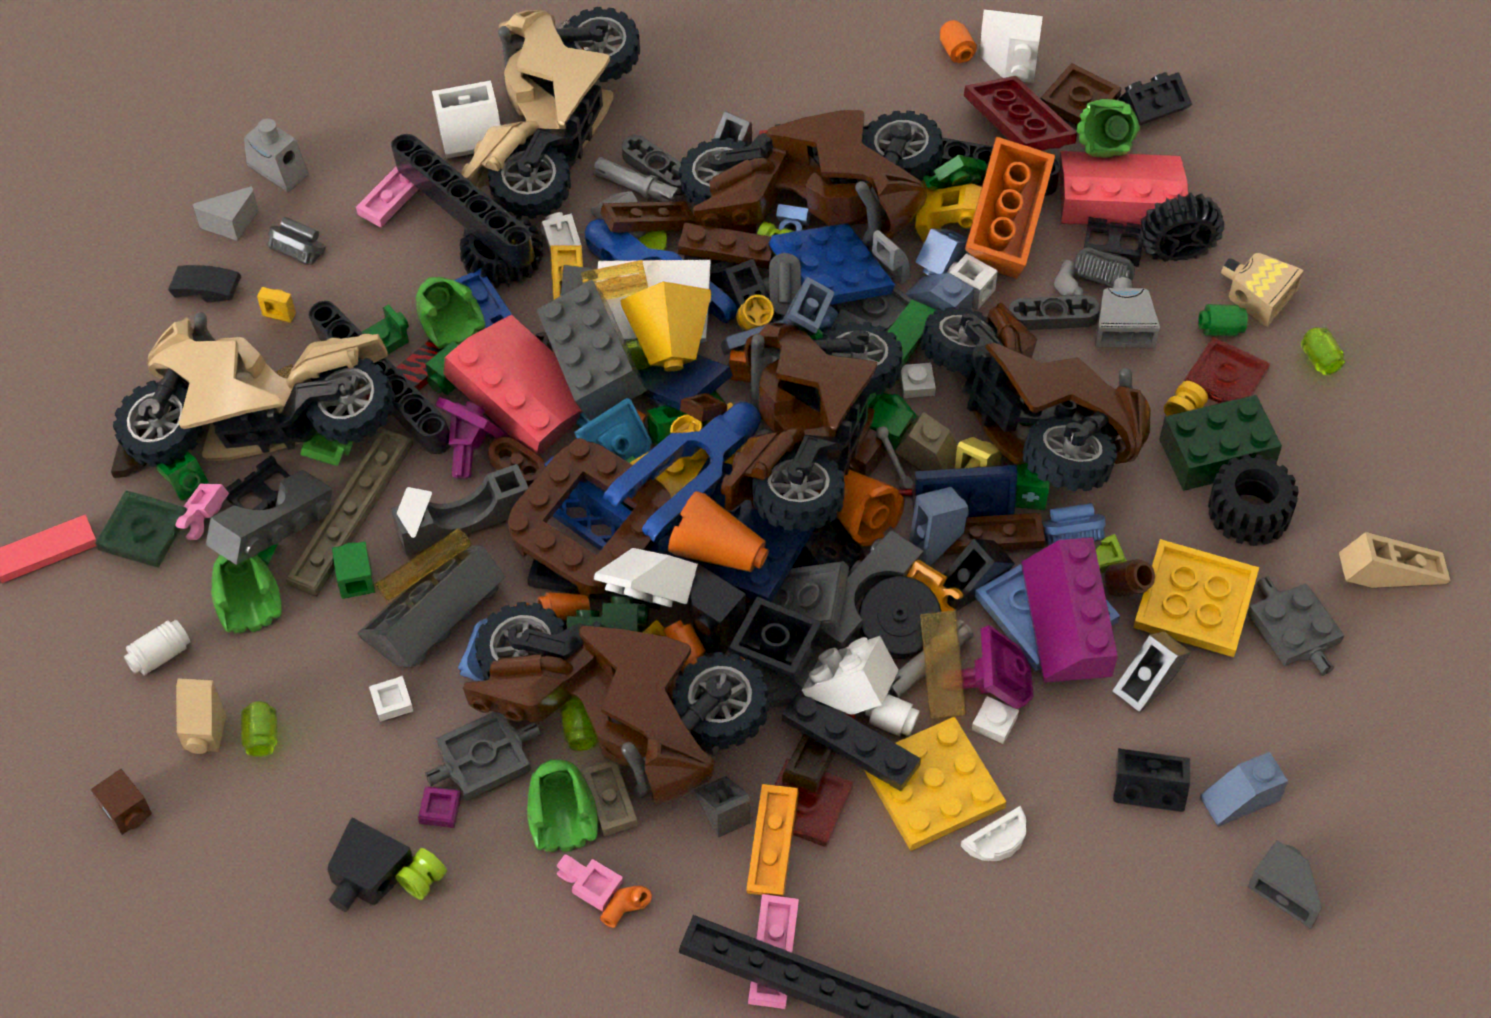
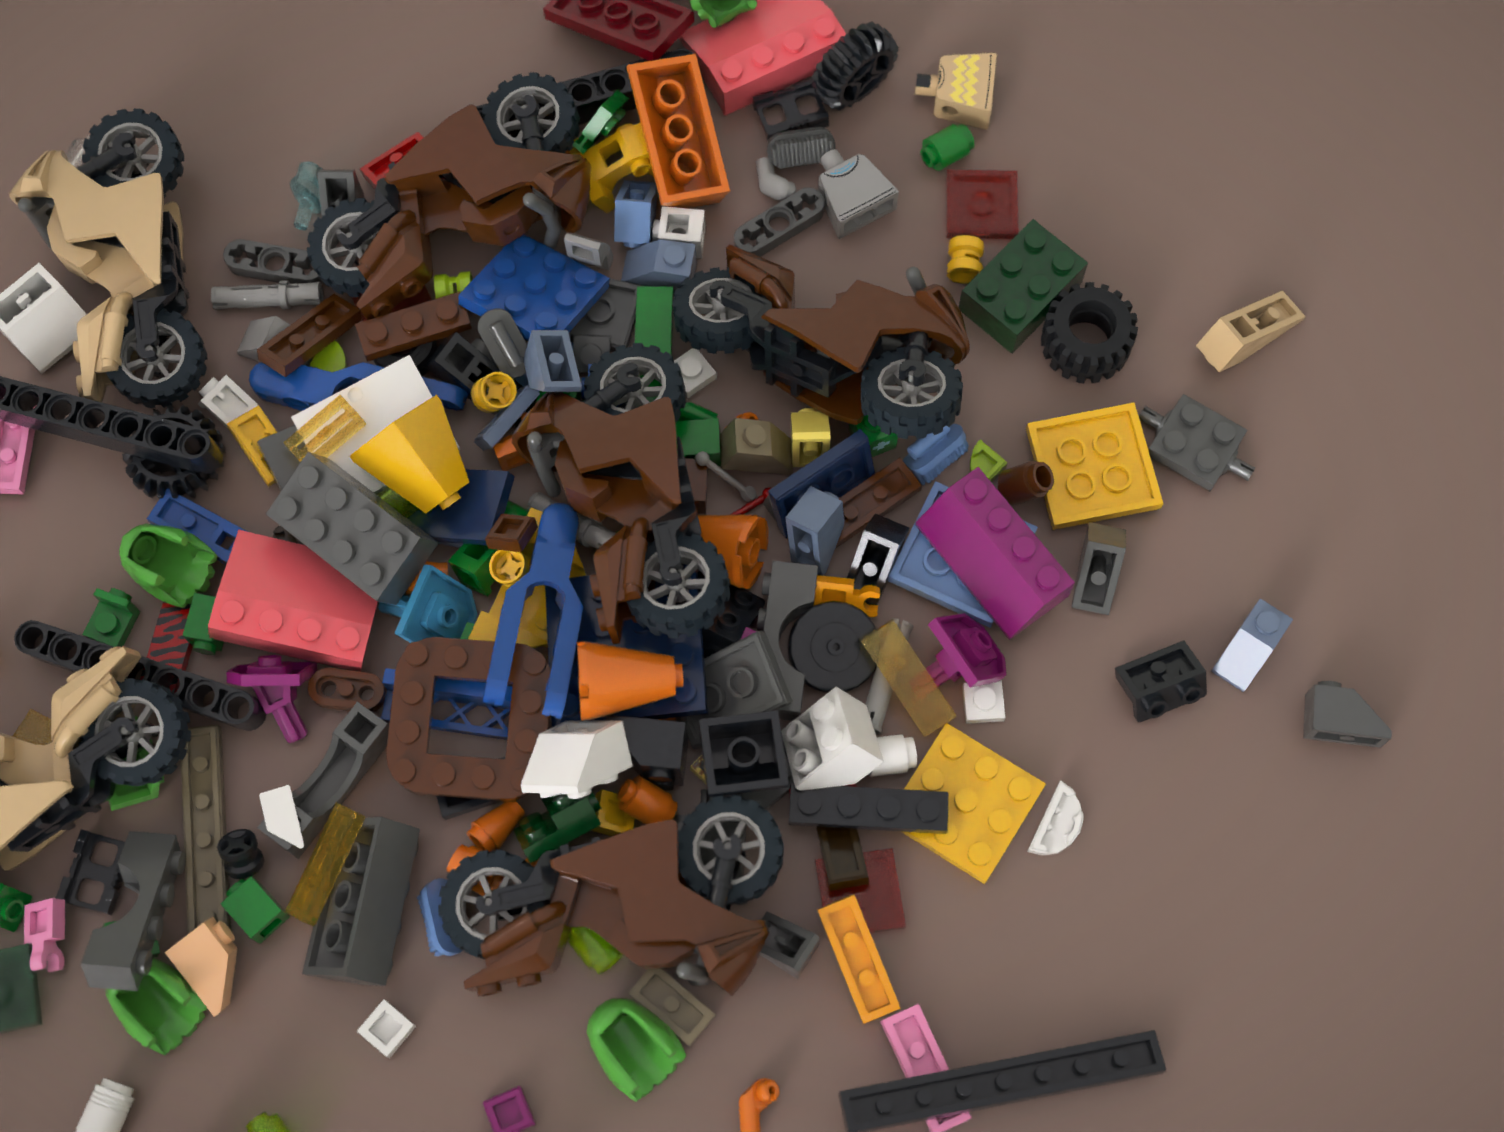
camera: 30 degrees left, 15 degrees up
(297, 582) = (207, 963): none -> light nougat slope
(368, 526) = (240, 854): none -> black wheel
(483, 754) = (518, 1034): dark grey plate -> none
(592, 883) = (715, 1104): bright pink plate -> none
(708, 126) = (306, 191): none -> clear light blue piece
(792, 216) = (458, 252): light blue tile -> none
(1323, 350) = (1059, 130): clear neon green brick -> none

